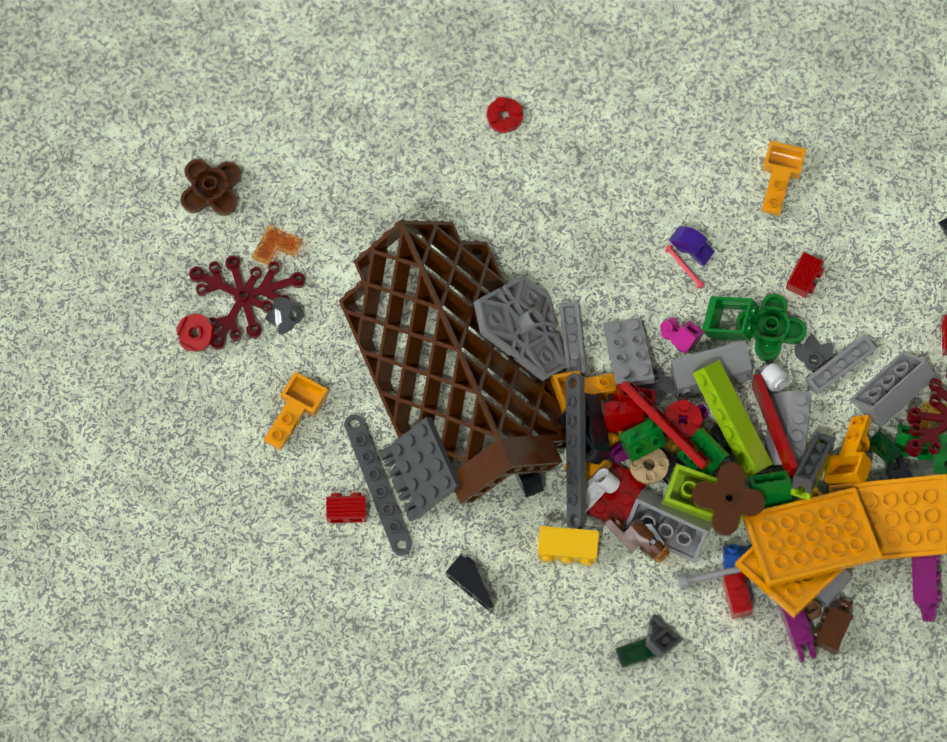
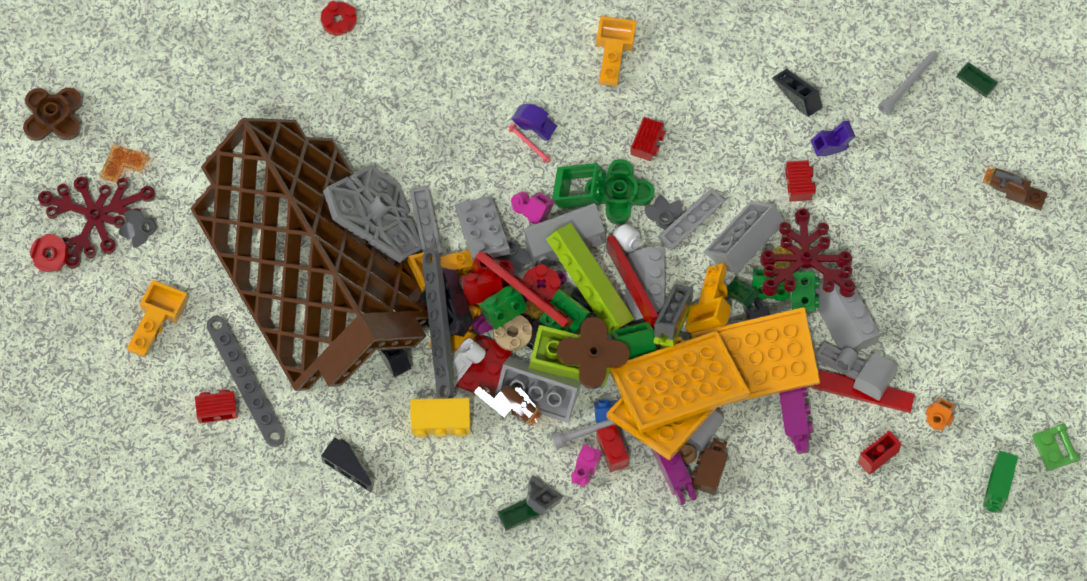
camera: 10 degrees left, 5 degrees down
(423, 468) = (289, 359): dark grey hinge -> none
(709, 609) = (586, 464): none -> dark pink brick

